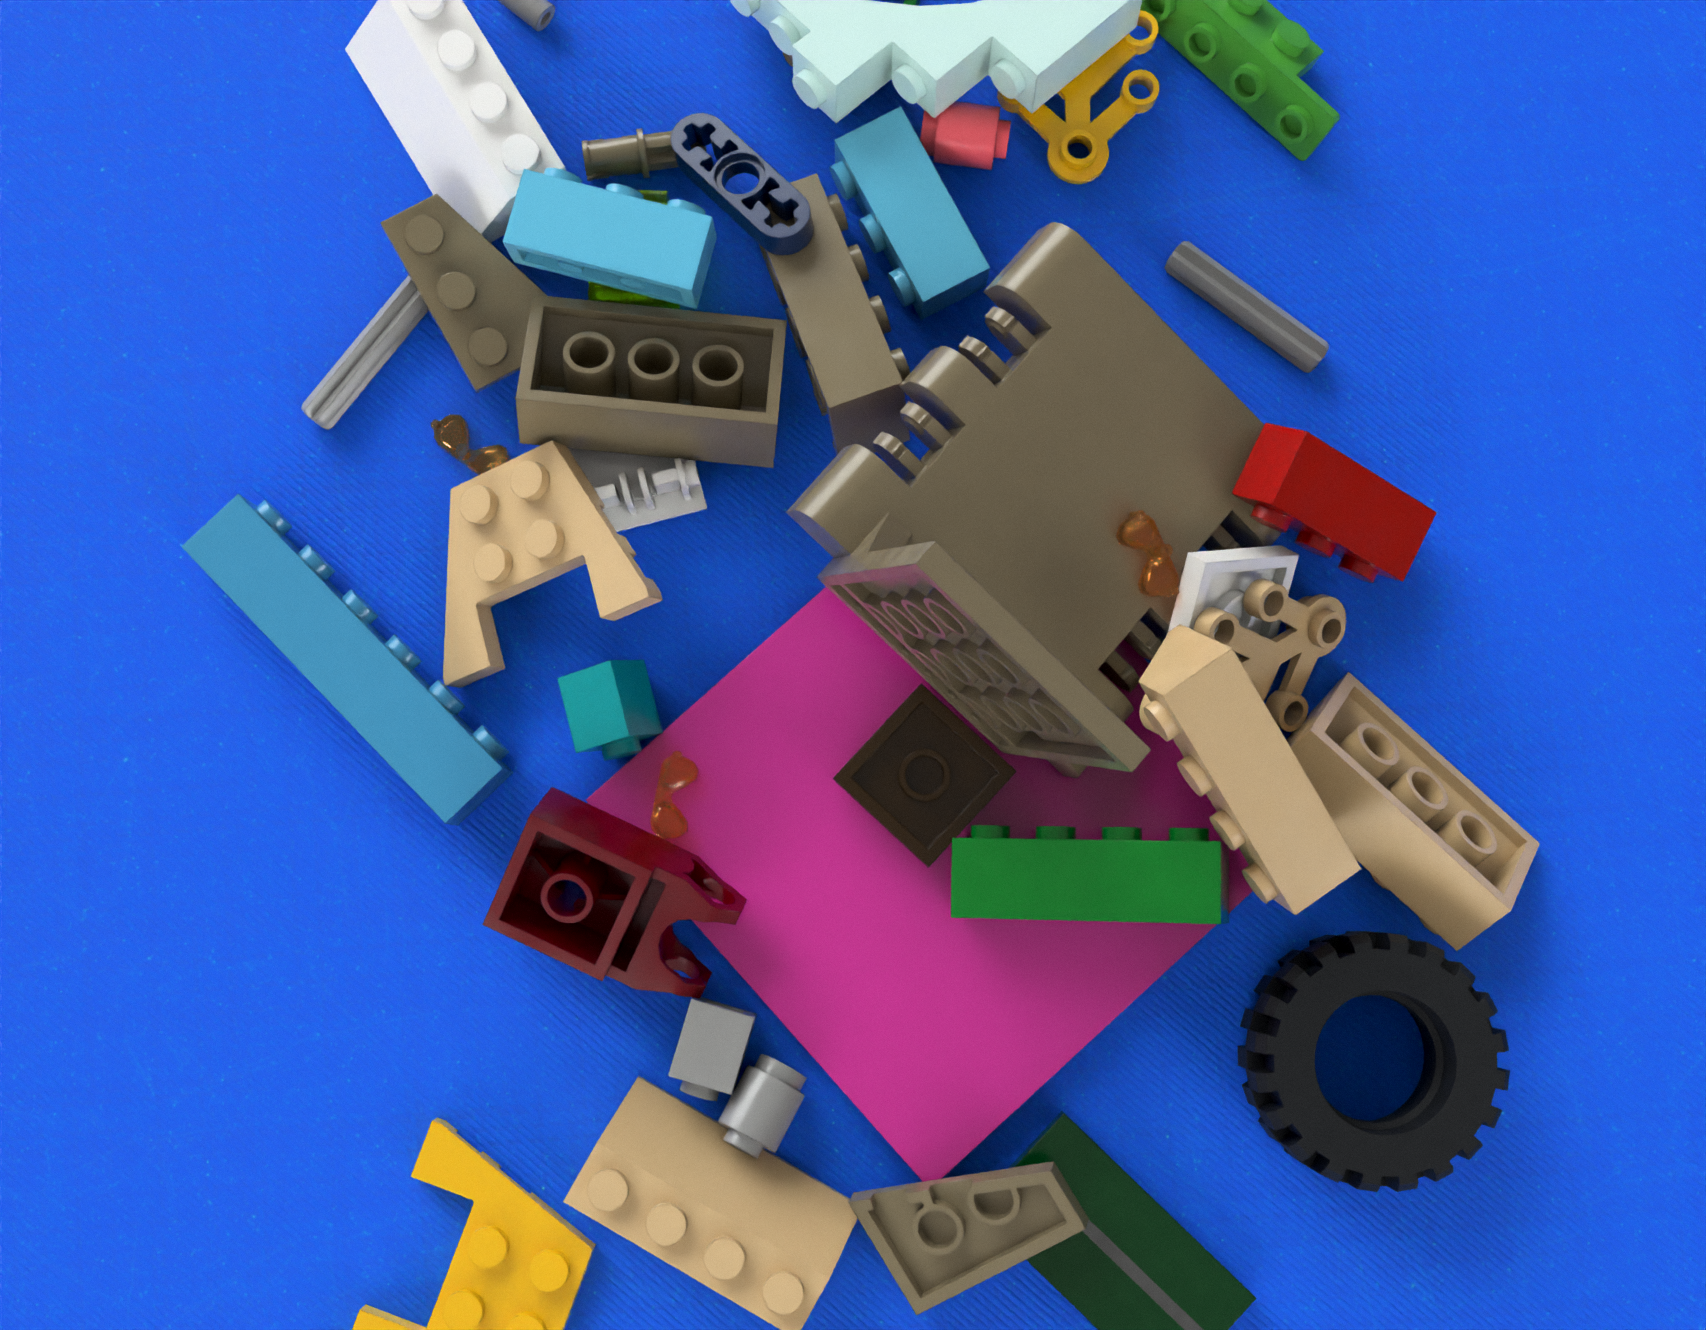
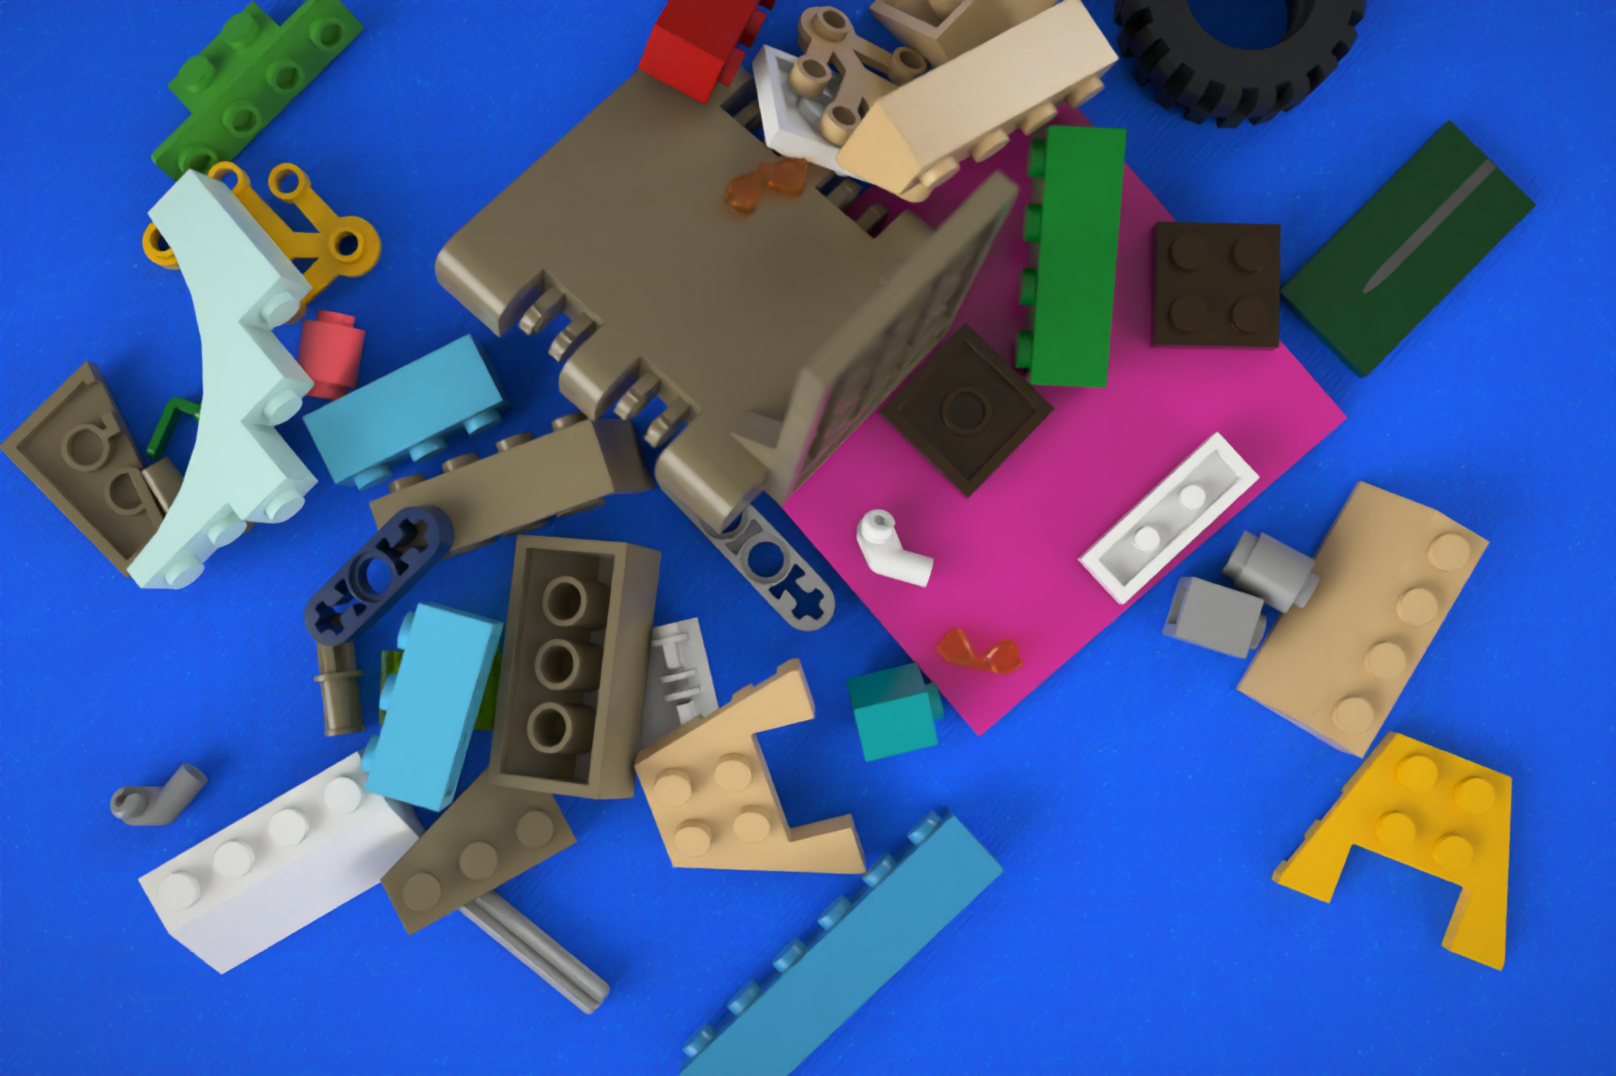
camera: 90 degrees left, 5 degrees up
(454, 438) = (620, 864): clear orange piece -> none
(608, 897) = (1078, 712): dark red brick -> none
(774, 696) = (885, 553): none -> white arm
(776, 546) = (739, 543): none -> light grey beam
(816, 992) = (1168, 518): none -> white plate
(966, 1227) = (1386, 382): dark tan wing -> none
(1065, 1041) = (1215, 286): none -> dark brown plate
(1246, 306) = (509, 88): light grey axle -> none

